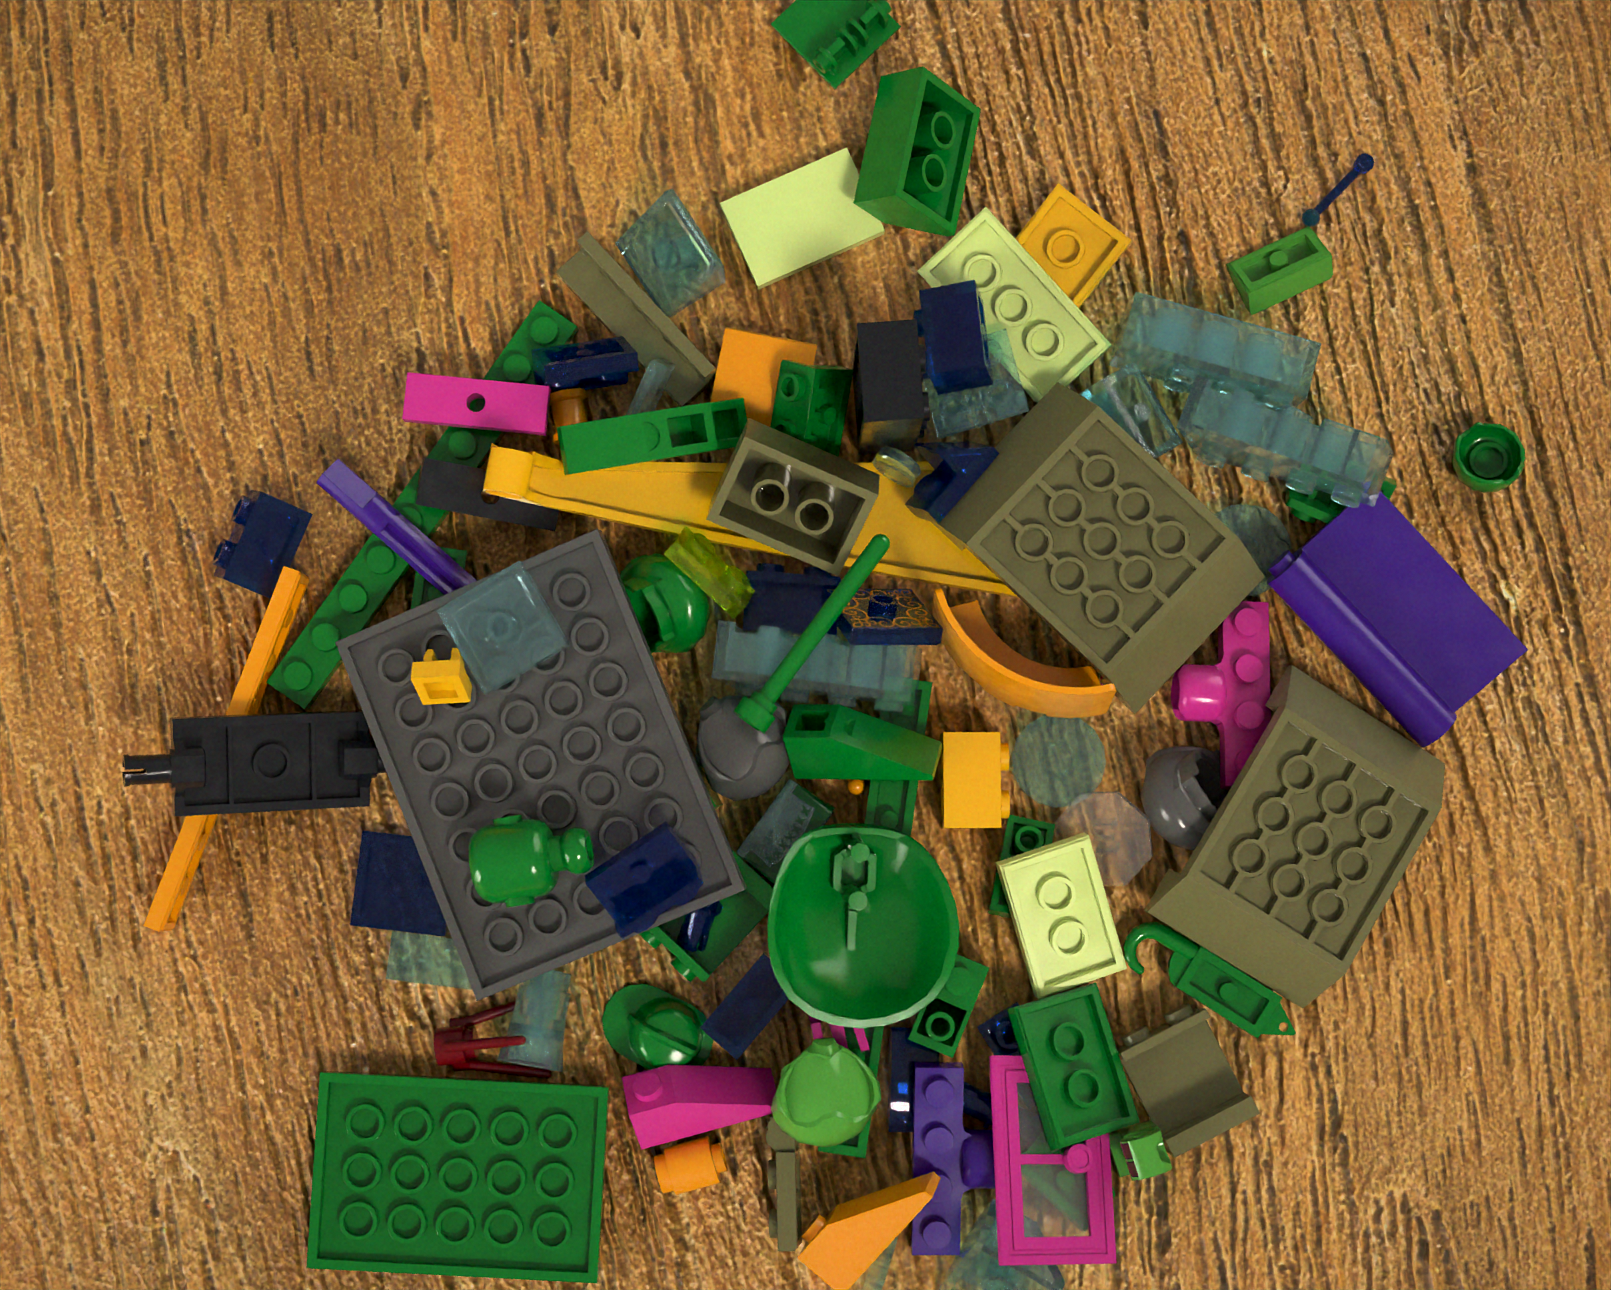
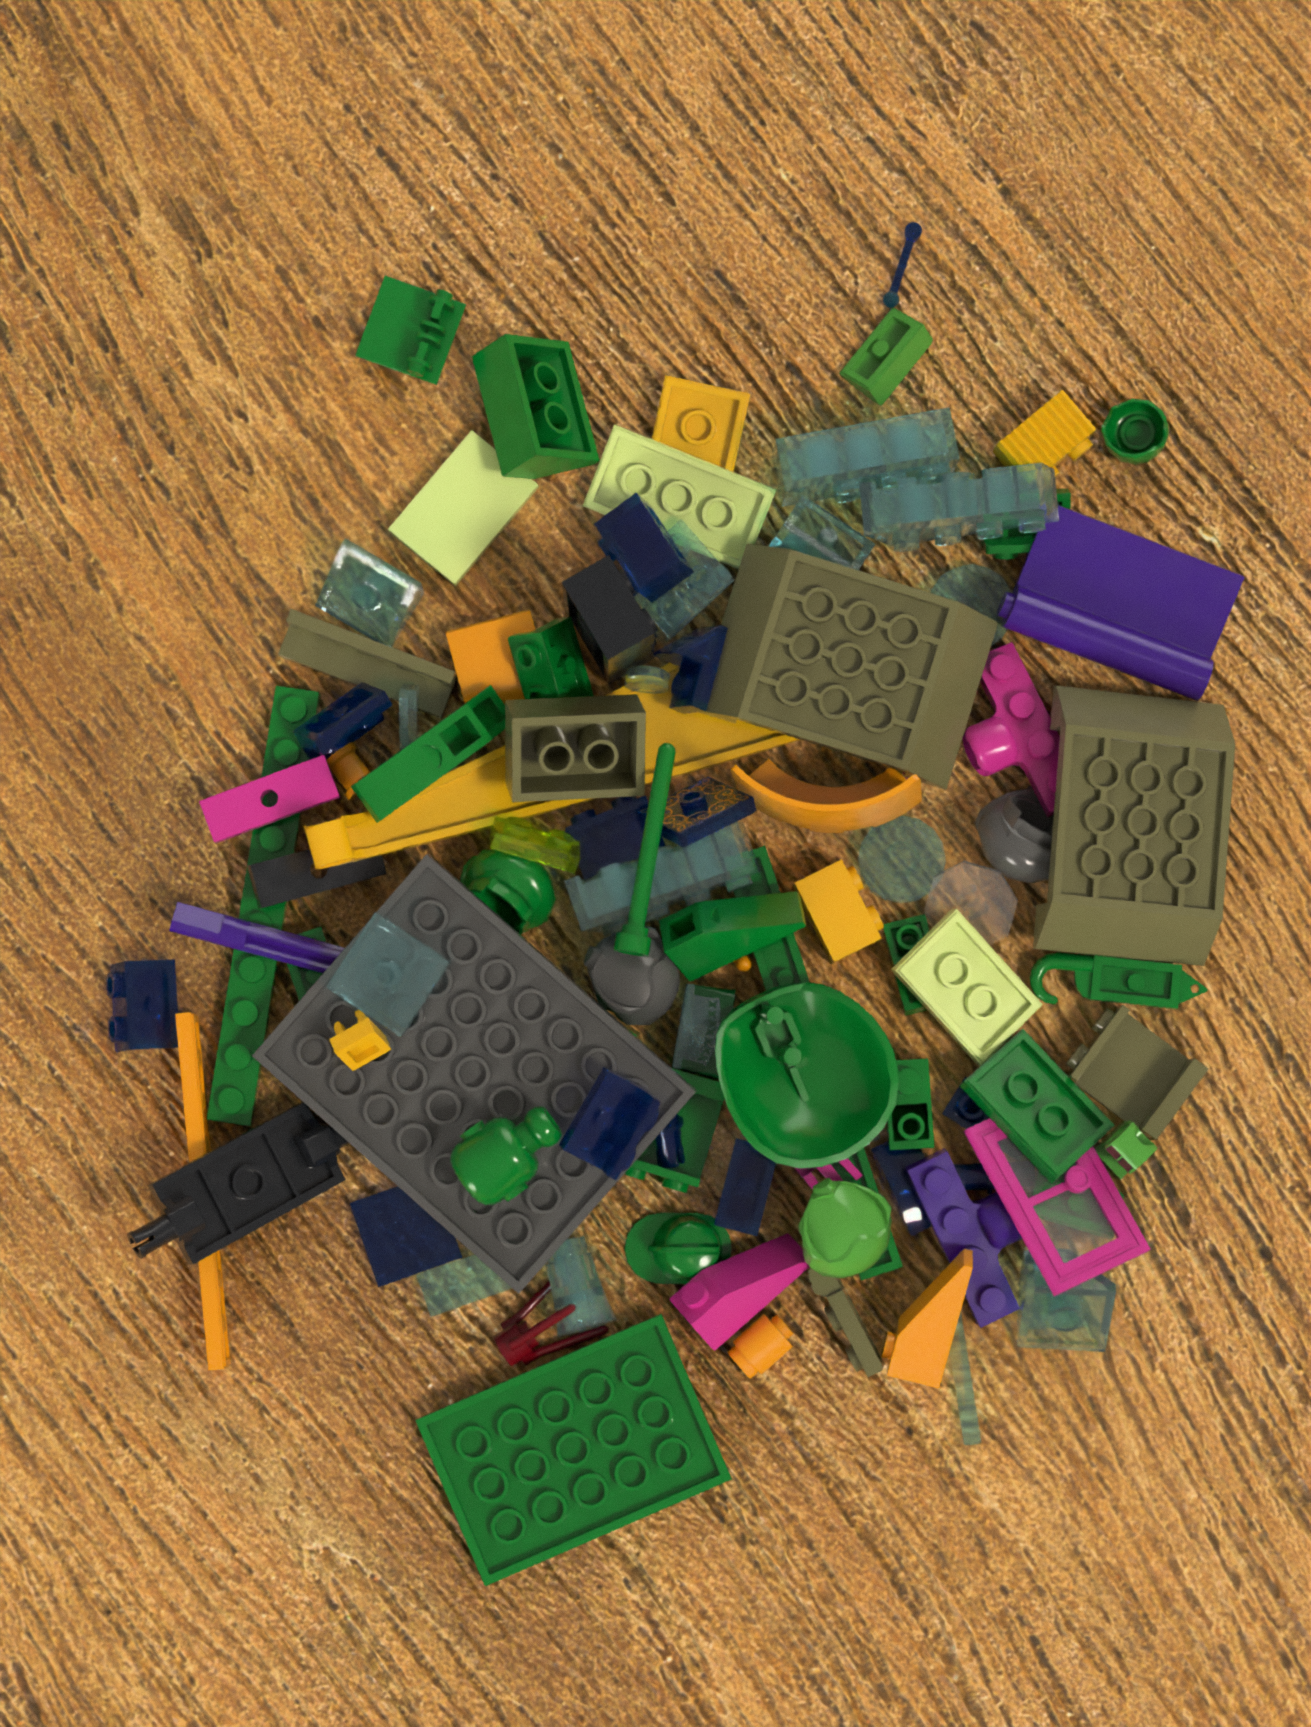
camera: 25 degrees left, 0 degrees up
(1406, 418) = (1048, 436): none -> yellow brick

